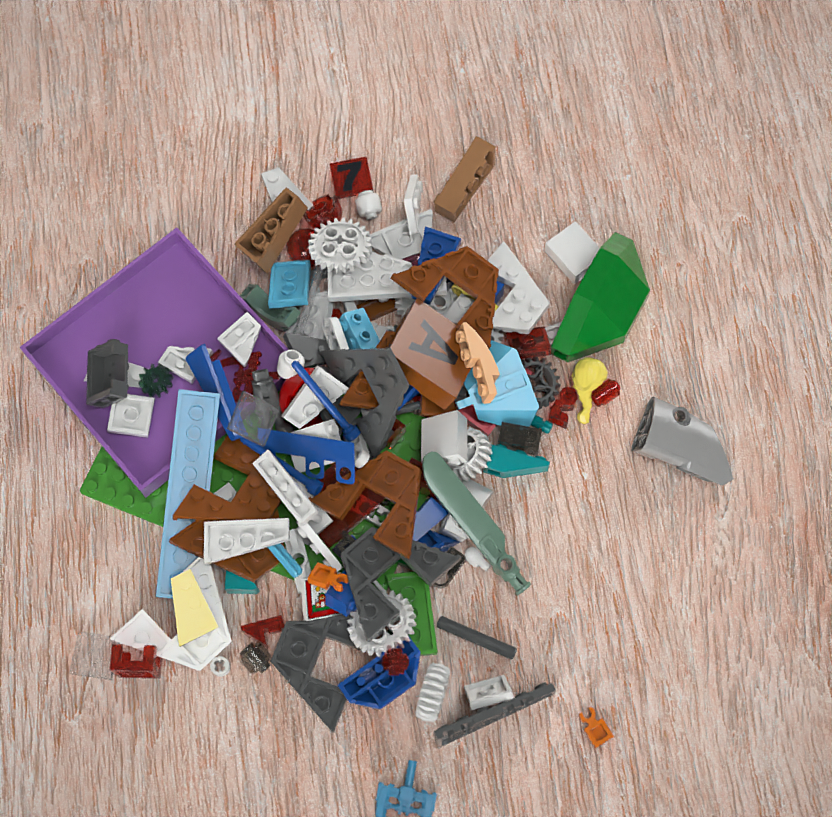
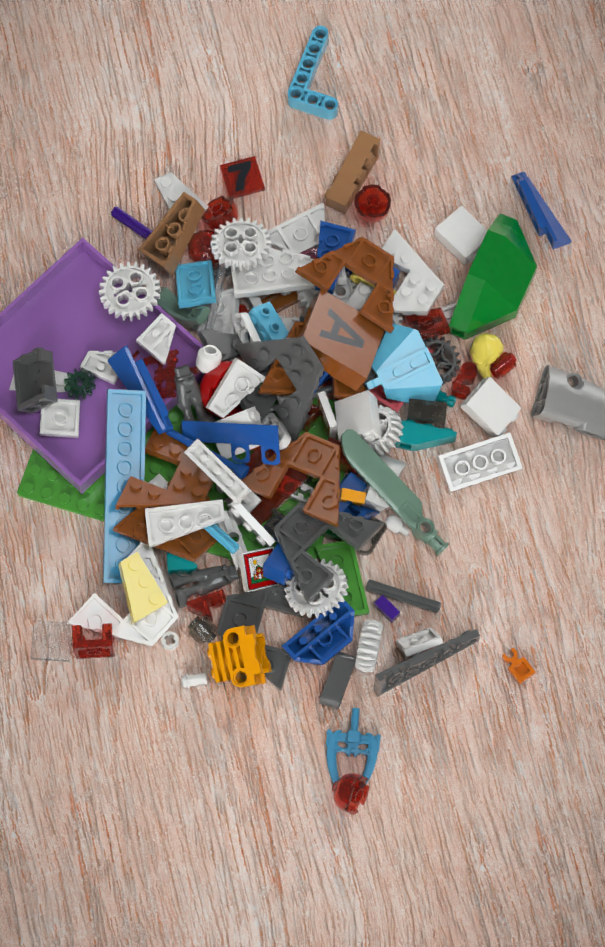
camera: 10 degrees left, 0 degrees up
(220, 302) = (135, 305): none -> white gear
(231, 215) = (130, 222): none -> dark purple axle
(240, 713) = (194, 680): none -> white pin
(253, 418) = (179, 411): clear tile -> none
(267, 603) = (207, 581): none -> dark grey piece
(290, 695) = (239, 656): none -> light orange piece
(324, 576) = (262, 549): orange plate -> none
(350, 432) = (269, 417): blue piece -> none
(368, 204) = (262, 203): white head -> none
(395, 661) = (333, 619): clear red gear -> none
(396, 727) = (338, 680): none -> dark grey beam
(412, 202) = (305, 198): white wing -> none
(412, 433) = (327, 415): none -> white tile
(429, 78) = (307, 74): none -> medium azure beam
(432, 524) = (354, 496): none -> light orange piece
(457, 650) = (387, 608): none -> dark purple piece
(478, 356) = (383, 339): light nougat slope -> none
(482, 212) = (372, 203): none -> clear red cylinder
(572, 496) = (479, 462): none -> white slope
(588, 437) = (491, 407): none -> white brick
(657, 235) = (539, 212): none -> blue wedge

